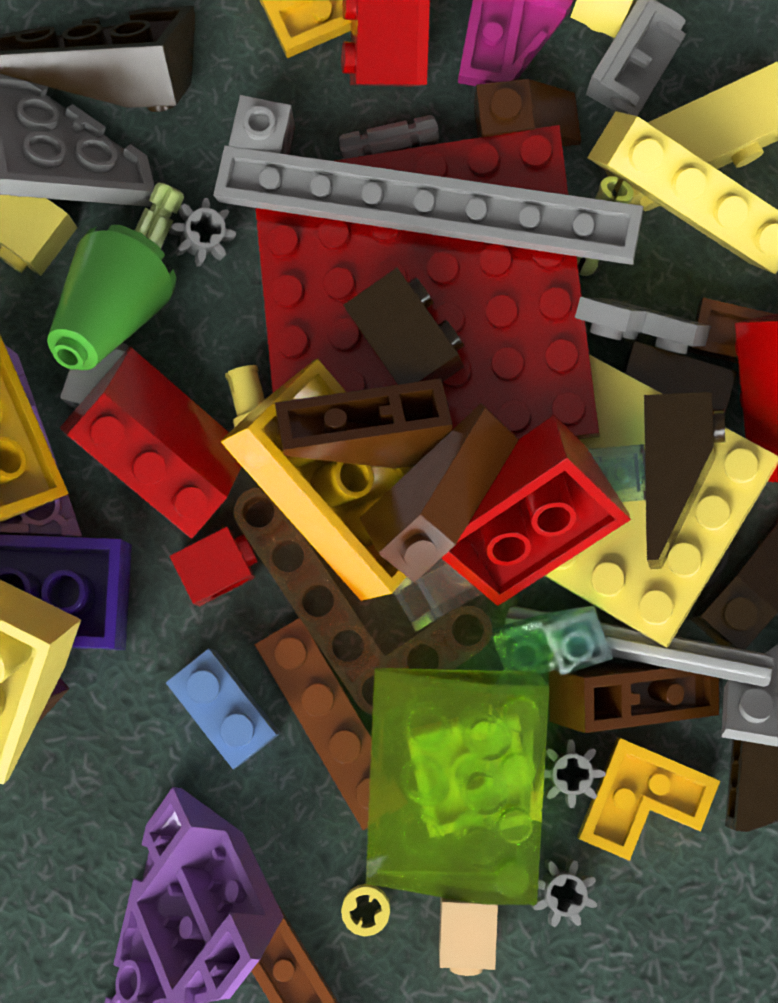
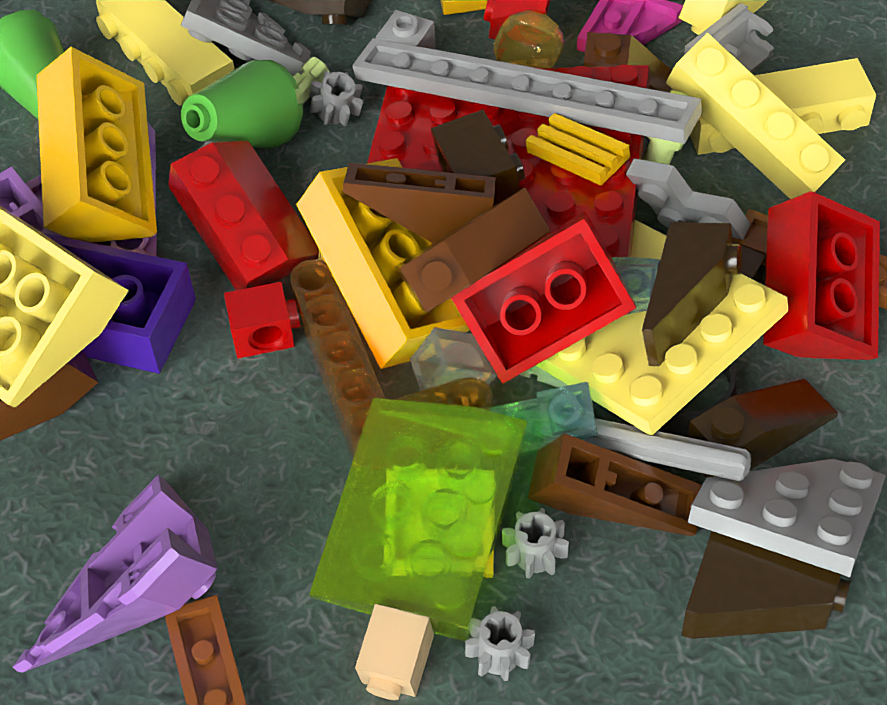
camera: 15 degrees right, 30 degrees down
(223, 708) = (228, 423): medium blue brick -> none
(322, 711) = (315, 448): dark orange plate -> none
(381, 915) = (287, 617): light yellow bush -> none
(412, 118) = (529, 40): none -> clear yellow hair
(471, 268) = (583, 144): none -> yellow tile
(633, 786) = (601, 568): yellow plate -> none

